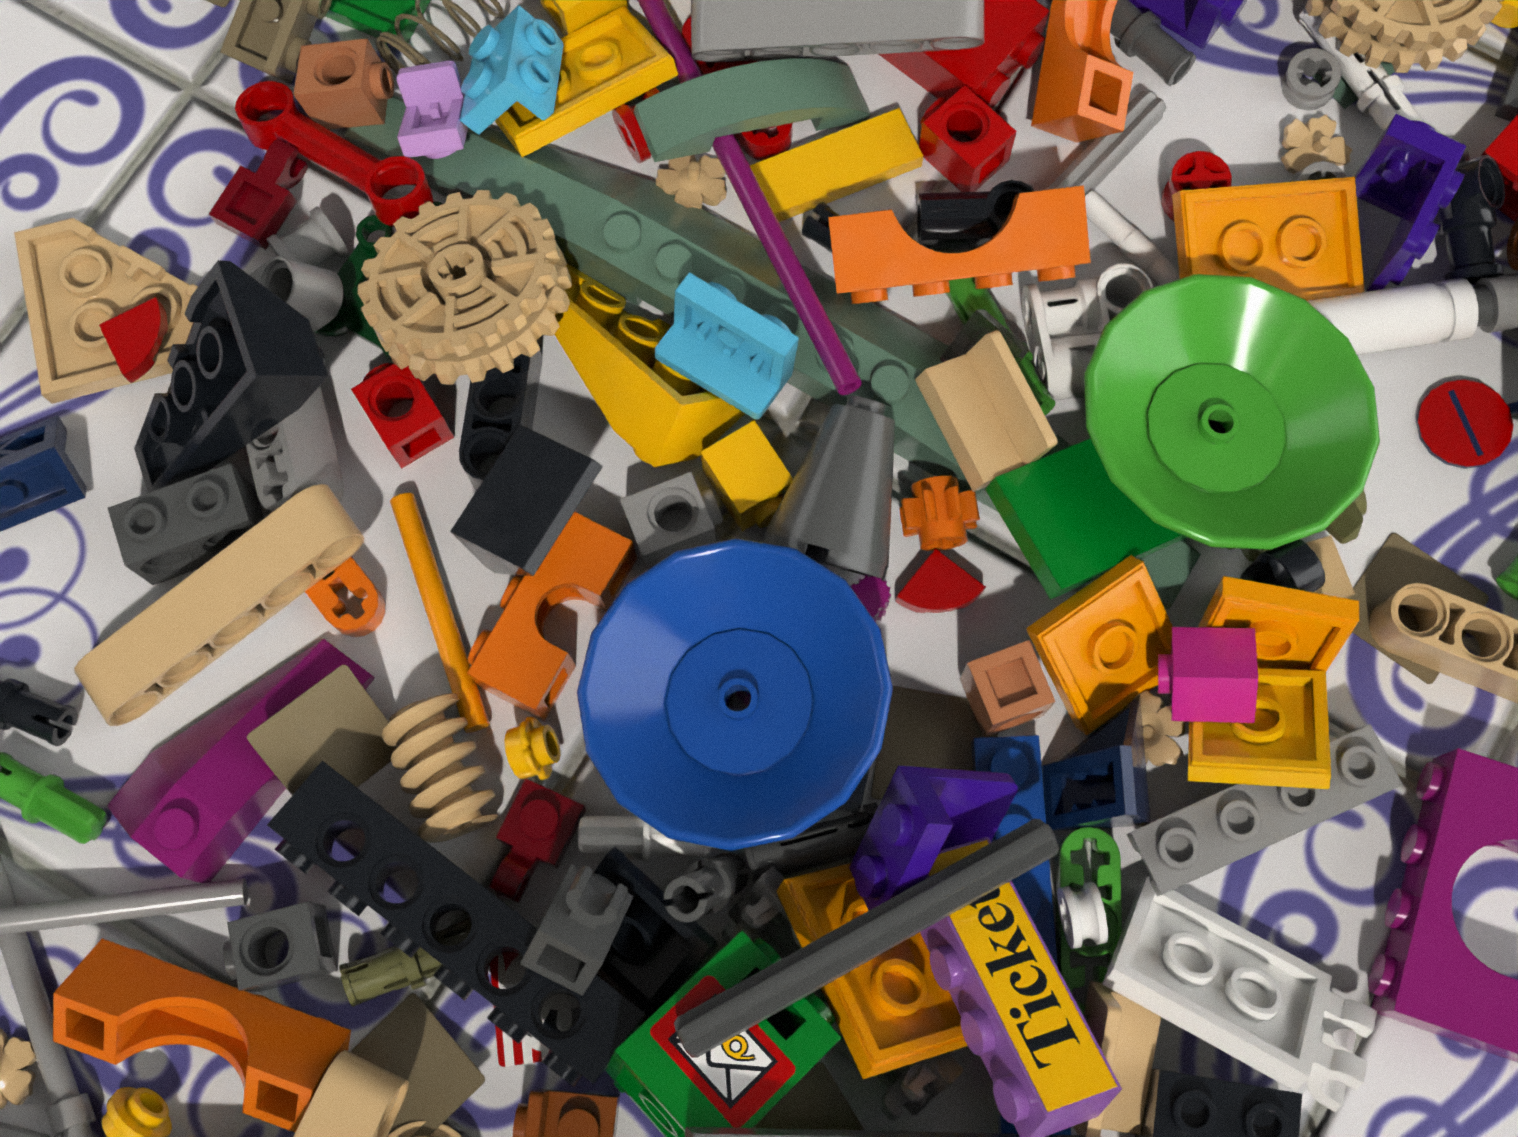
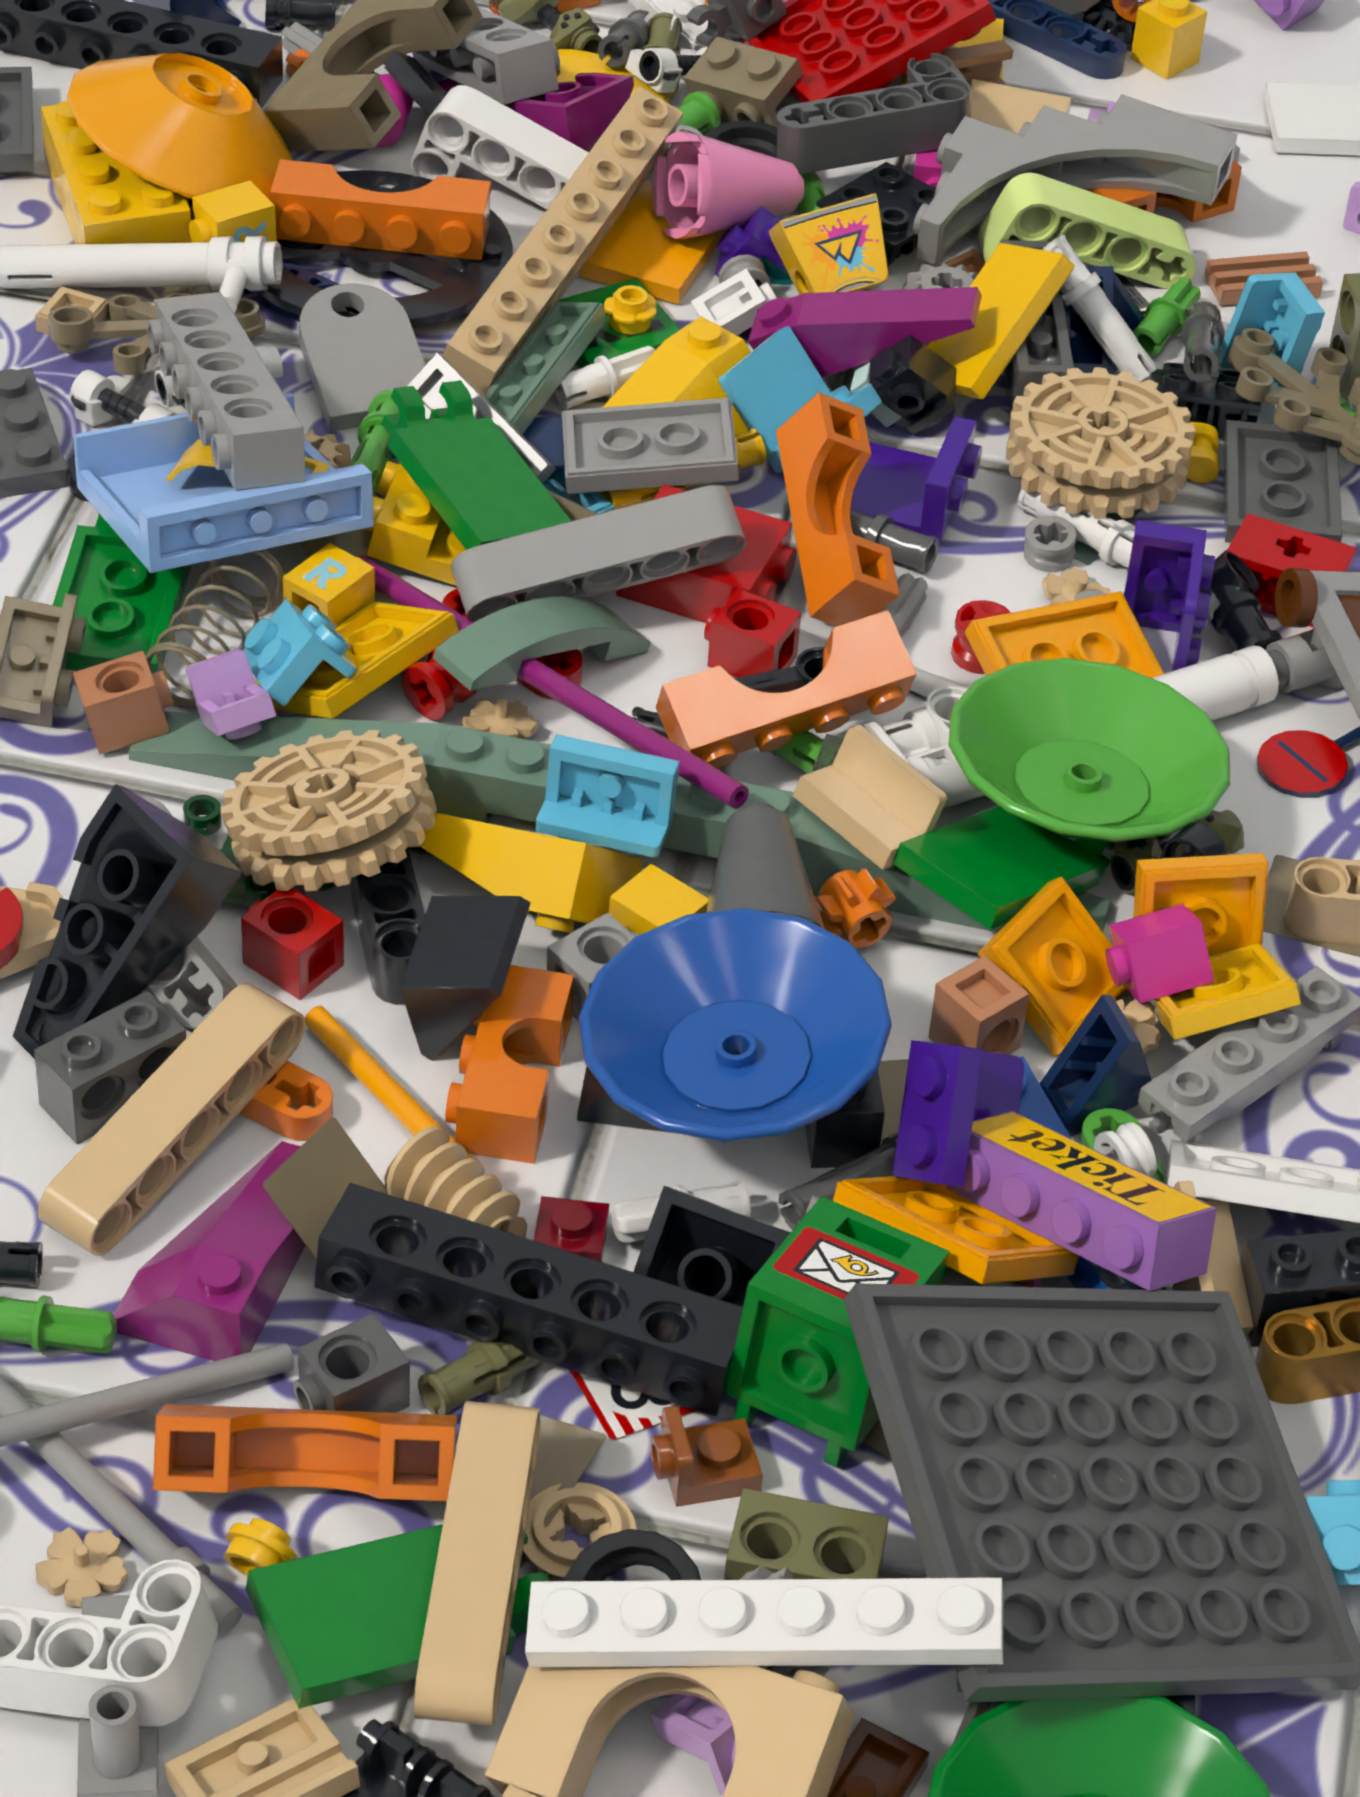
camera: 25 degrees left, 30 degrees down
(259, 201) = (64, 810): dark red plate -> none
(332, 151) = (55, 746): red piece -> none
(532, 749) = (539, 1170): yellow plate -> none
(577, 929) = (665, 1233): dark grey brick -> none
(705, 887) = (774, 1201): dark grey pin -> none
(838, 164) = (632, 682): yellow tile -> none
(864, 938) = (937, 1164): dark grey axle -> none
(939, 587) = (893, 967): red tile -> none

